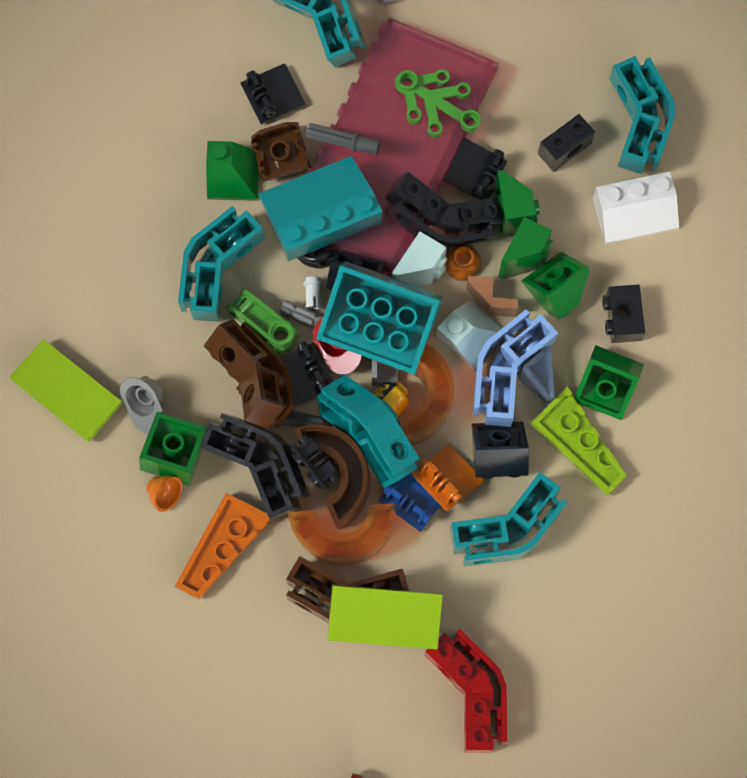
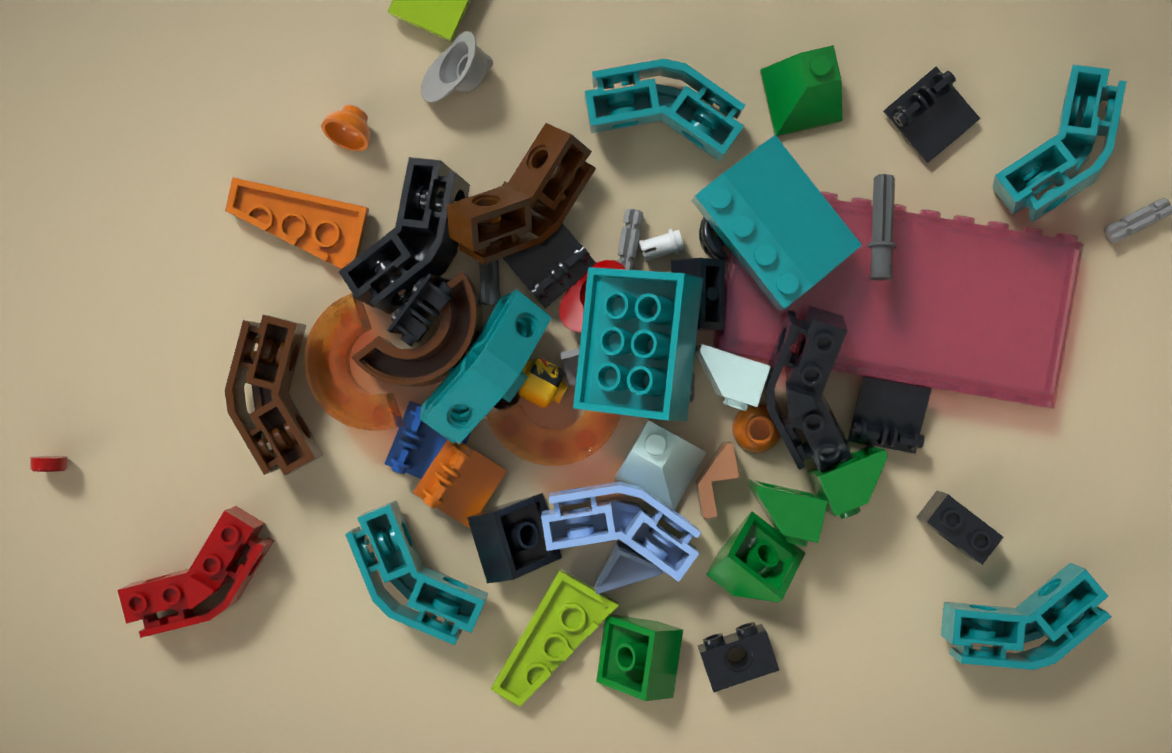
camera: 80 degrees right, 15 degrees up
(172, 447) = (404, 122): green slope -> none
(263, 321) = (605, 190): bright green piece -> none
(280, 151) = (848, 147): reddish brown slope -> none
(384, 616) = (241, 452): lime tile -> none
(434, 99) = (973, 335): bright green plant -> none
(636, 207) = (890, 641): white slope -> none

